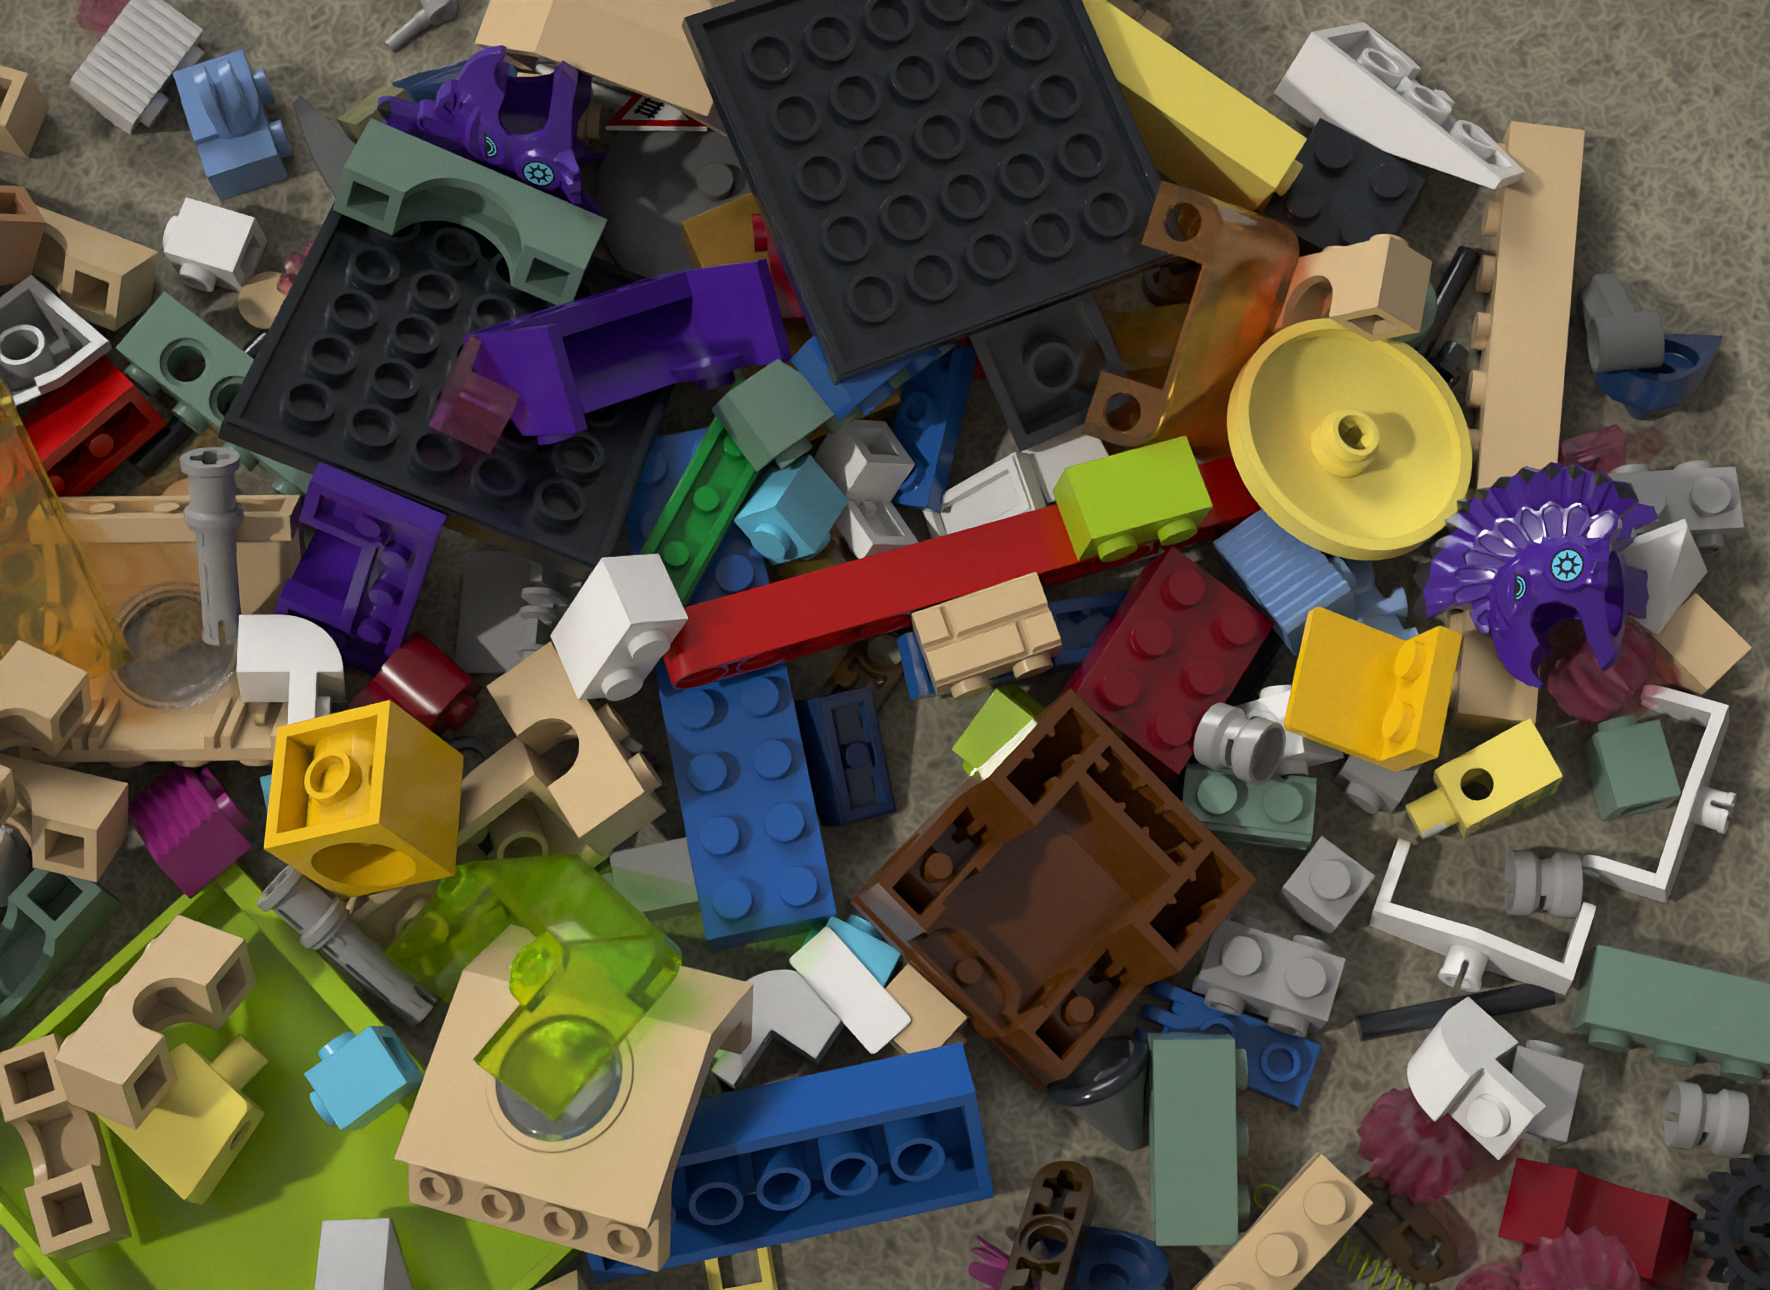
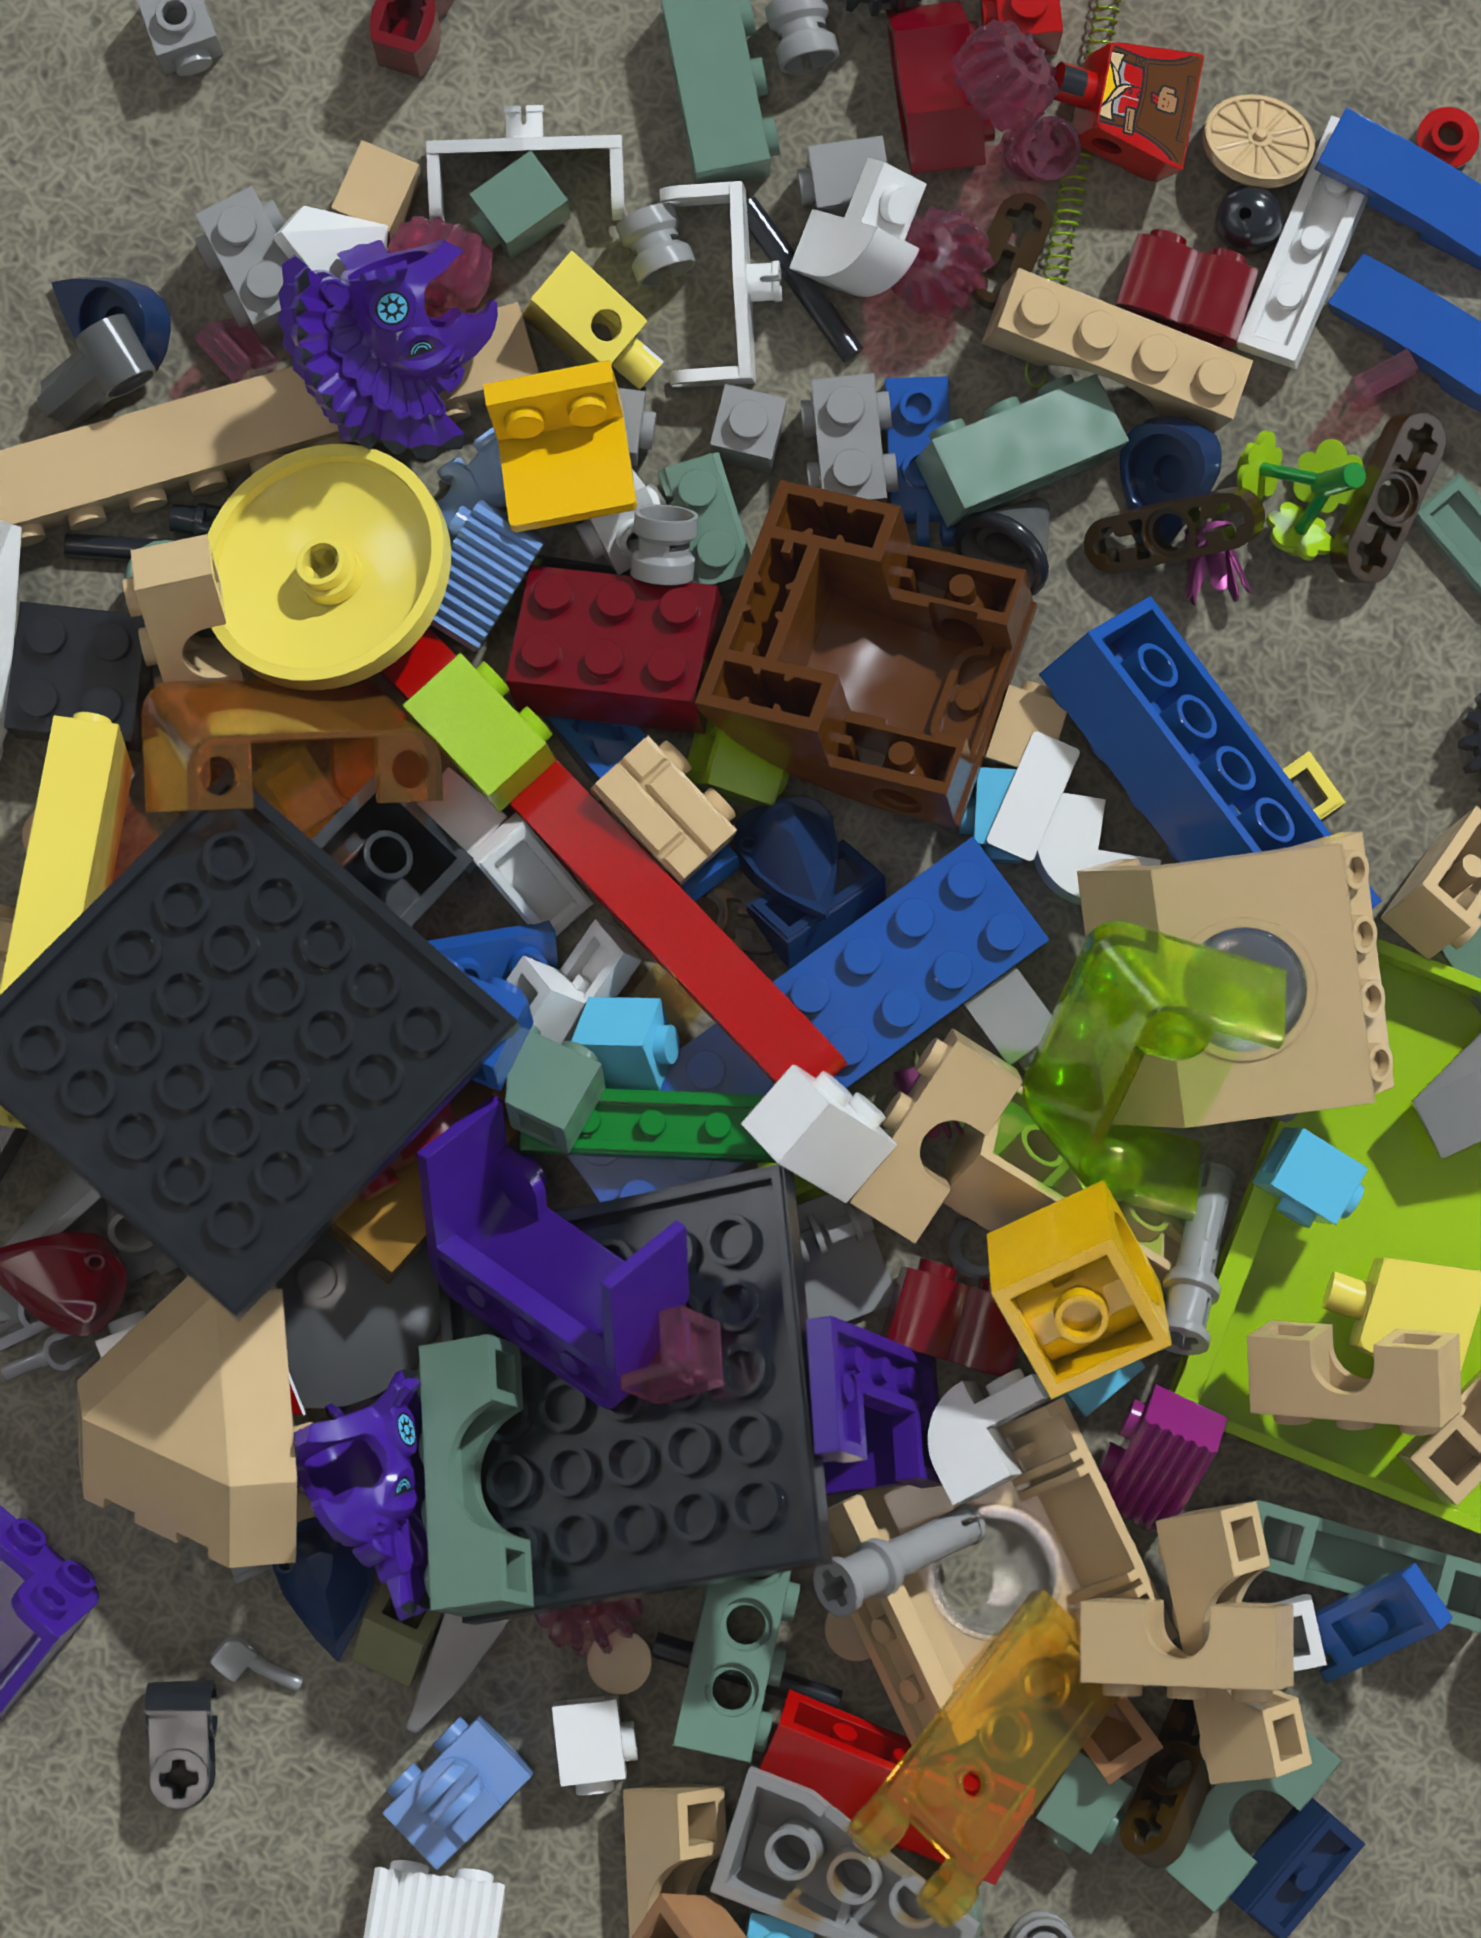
camera: 120 degrees left, 10 degrees up
(901, 751) = (791, 852): none -> dark blue piece

